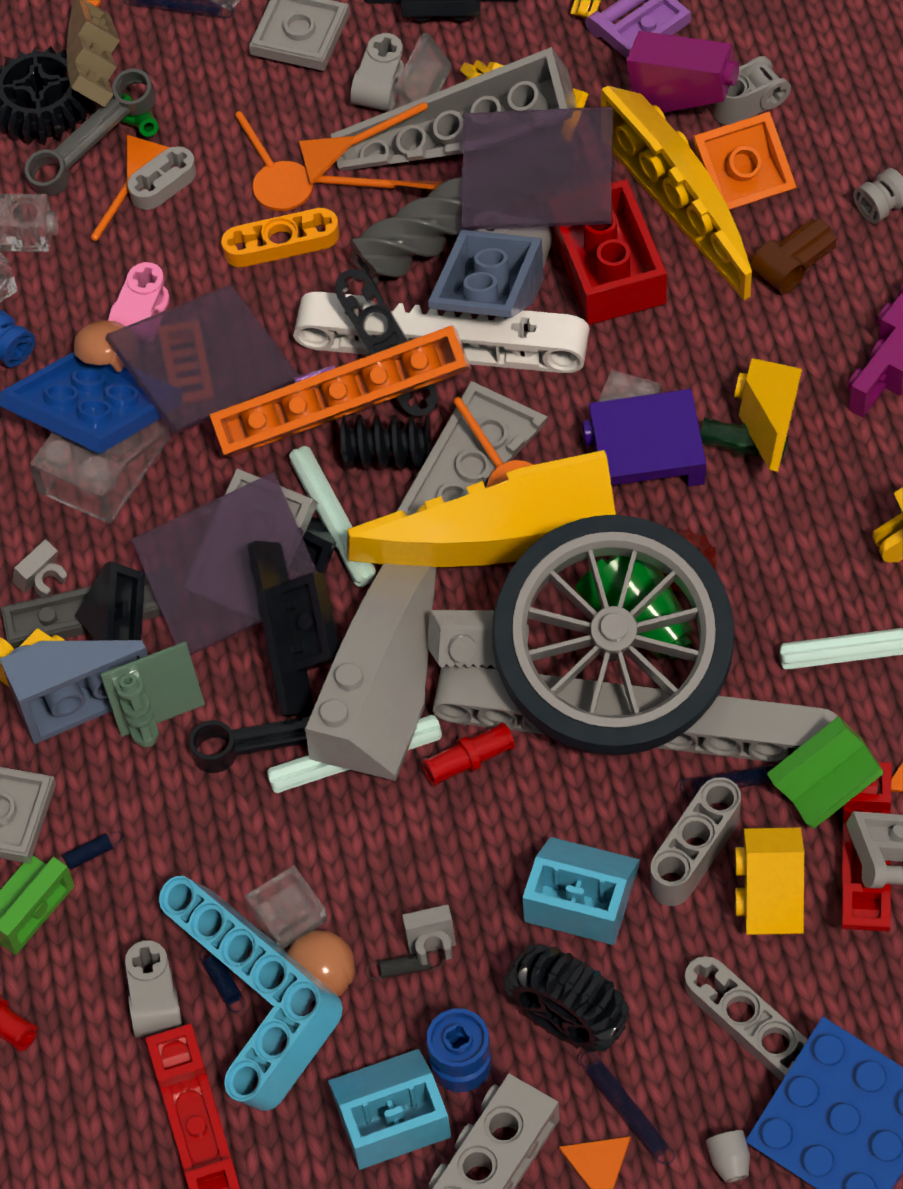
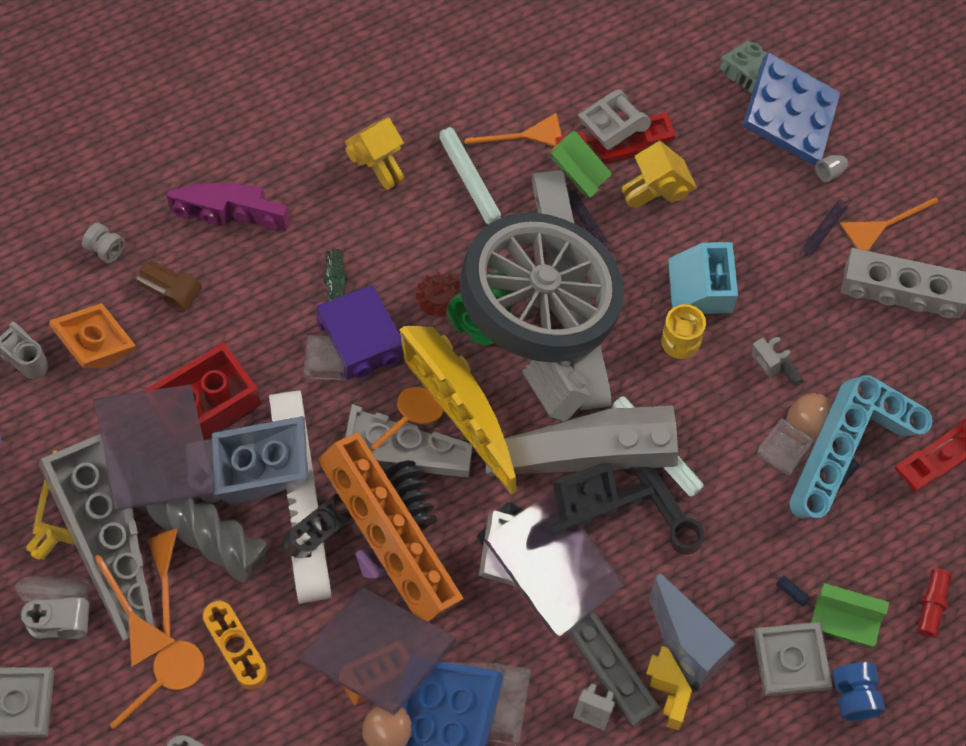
camera: 115 degrees left, 5 degrees up
(114, 604) = (616, 634): black slope -> none
(140, 295) = (338, 723): bright pink piece -> none
(152, 692) = (688, 581): sand green hinge -> none
(152, 994) = (876, 507): light grey piece -> none
(329, 511) = (476, 521): light aqua axle -> none
(390, 1108) = (890, 341): medium azure slope -> none
(459, 1050) = (839, 314): blue wheel -> none
(468, 754) = (633, 375): red pin -> none
(506, 829) = (683, 331): none -> yellow wheel
(567, 998) = (786, 260): black gear -> none
(677, 183) = (125, 368): yellow wedge -> none
(681, 70) = (29, 382): magenta slope -> none
(696, 822) = (636, 219): light grey beam -> none
(747, 1033) = (748, 173): light grey beam -> none
(768, 405) = (314, 258): yellow slope -> none

